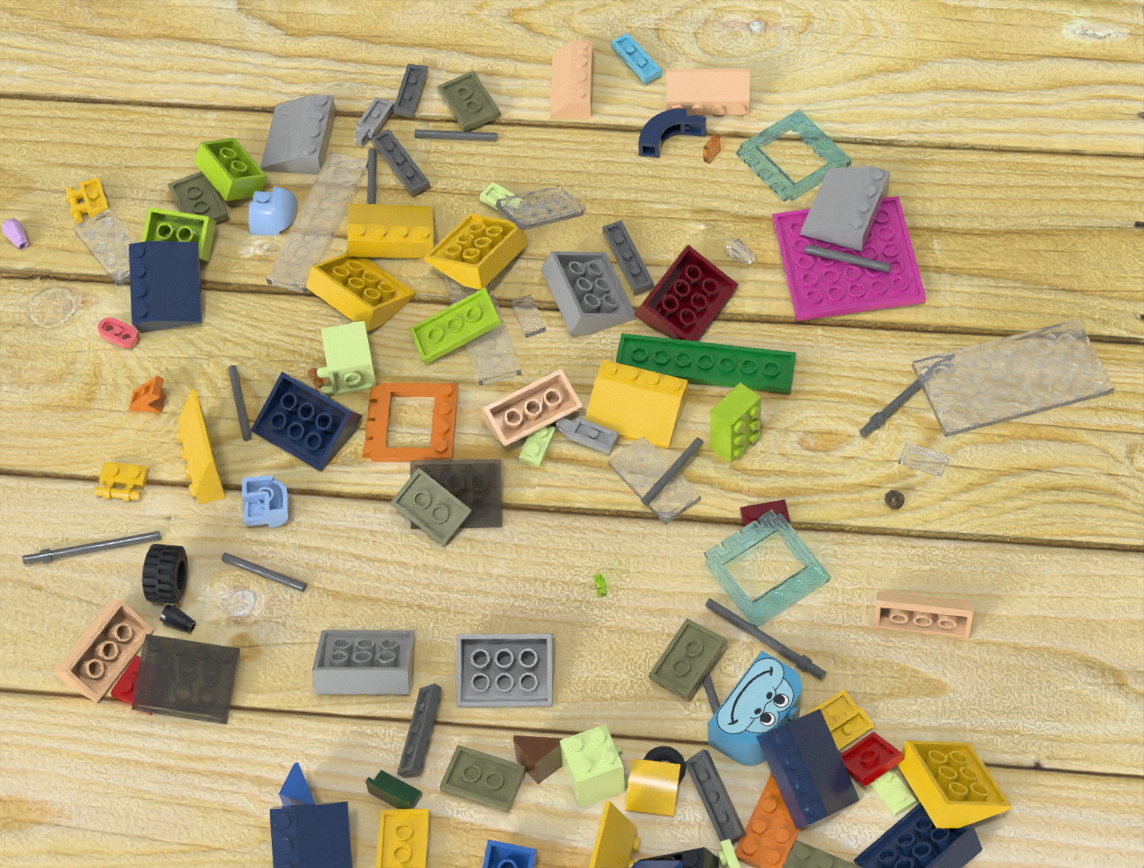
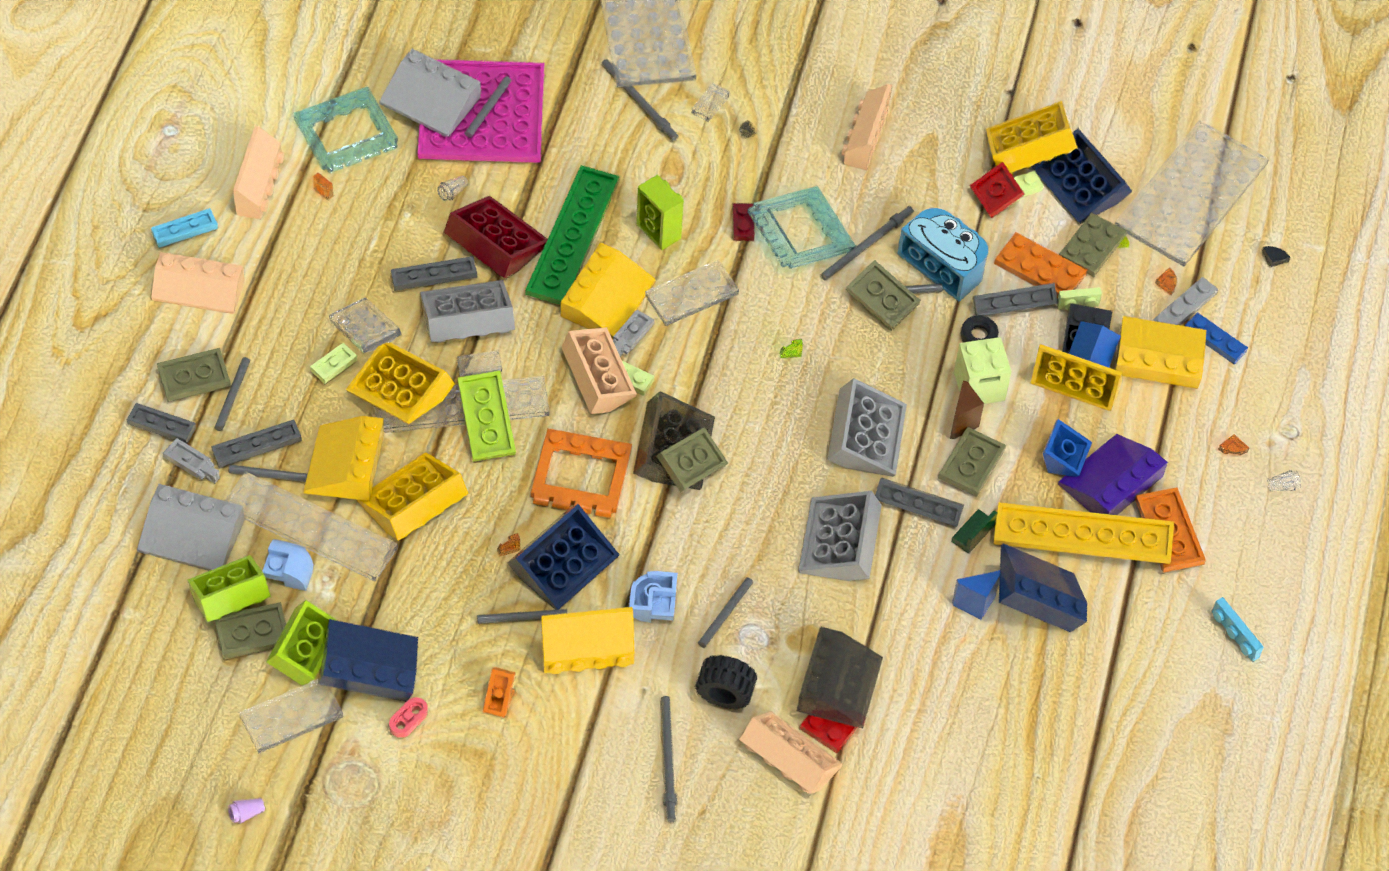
camera: 90 degrees left, 0 degrees up
(93, 196) = (217, 730): yellow plate -> none
(122, 475) = (588, 723): yellow plate -> none
(177, 619) = (766, 687): black cone -> none
(347, 359) = (503, 507): yellowish green container -> none
(652, 787) = (1010, 335): yellow slope -> none
(667, 125) = (288, 226): dark blue arch -> none
(672, 471) = (691, 273): dark grey bar -> none
(808, 769) = (1011, 226): dark blue slope -> none
(844, 718) = (957, 202): yellow slope -> none

